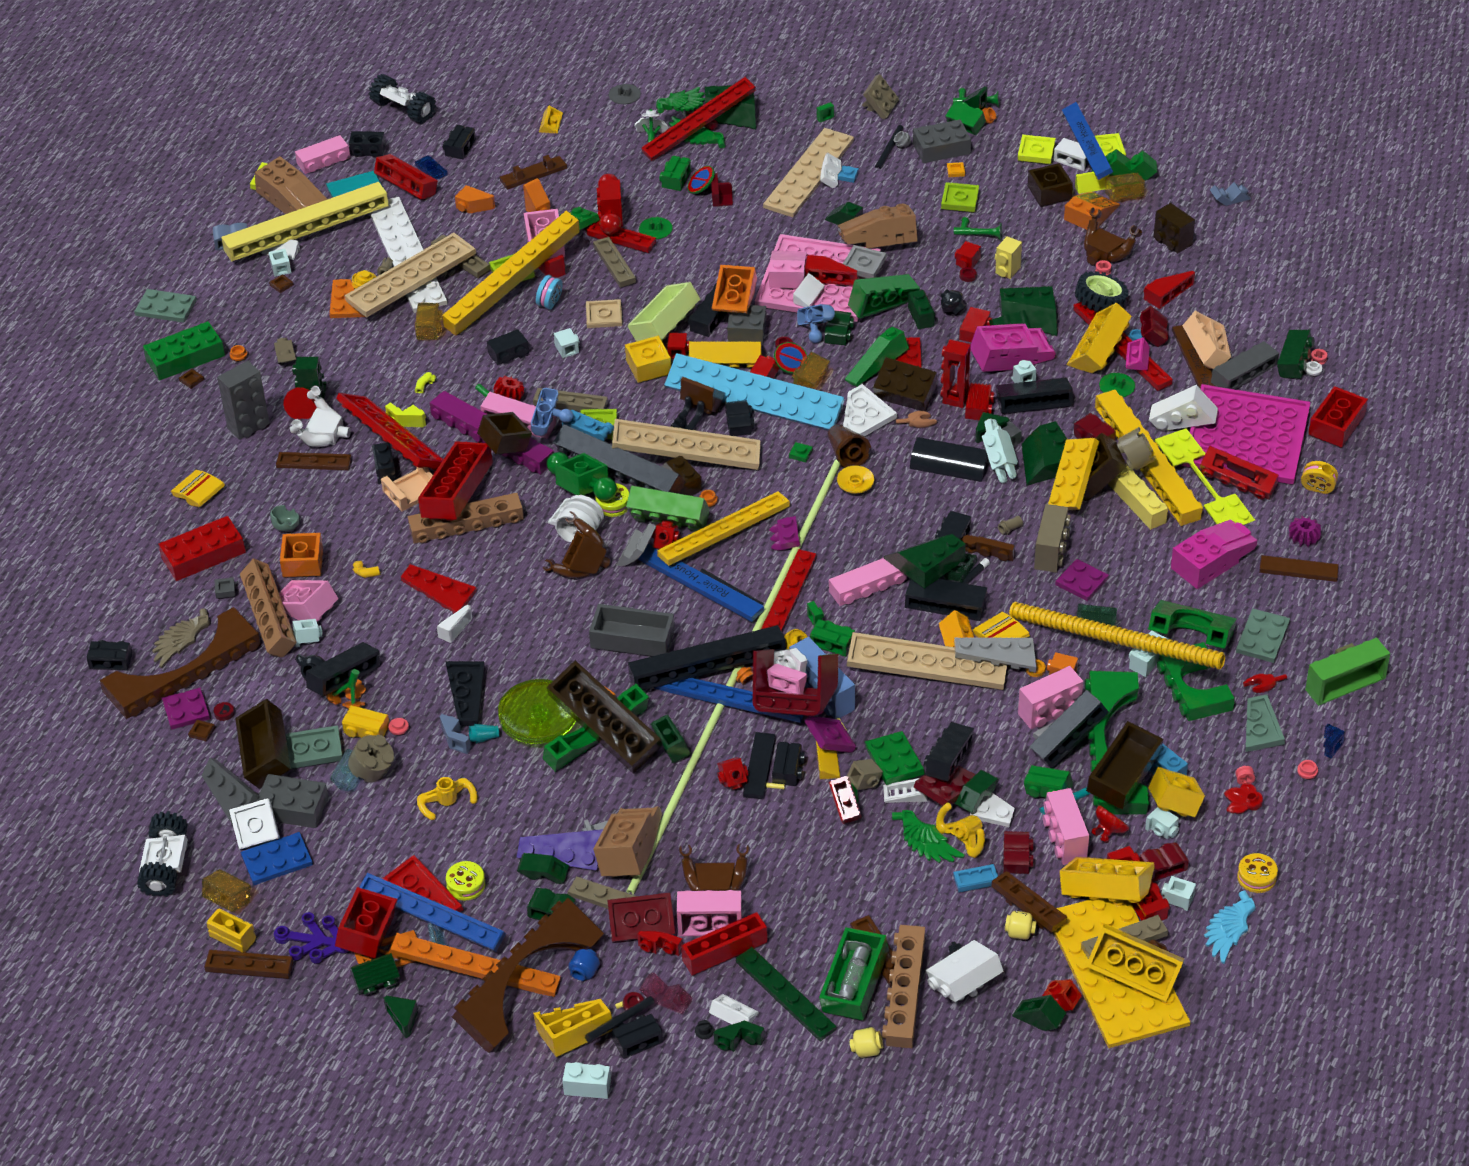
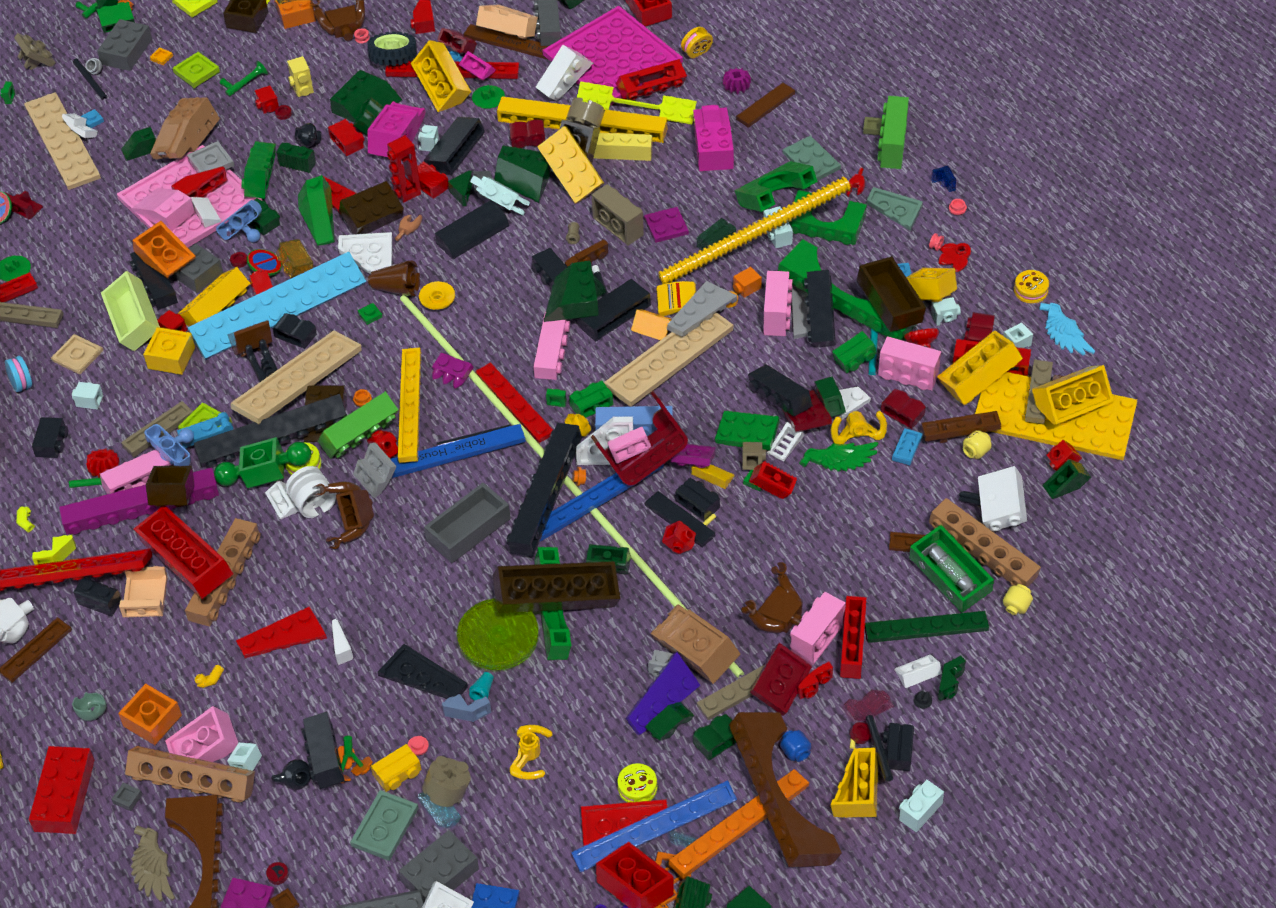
camera: 55 degrees left, 5 degrees up
(262, 742) = (357, 856): dark brown piece -> none

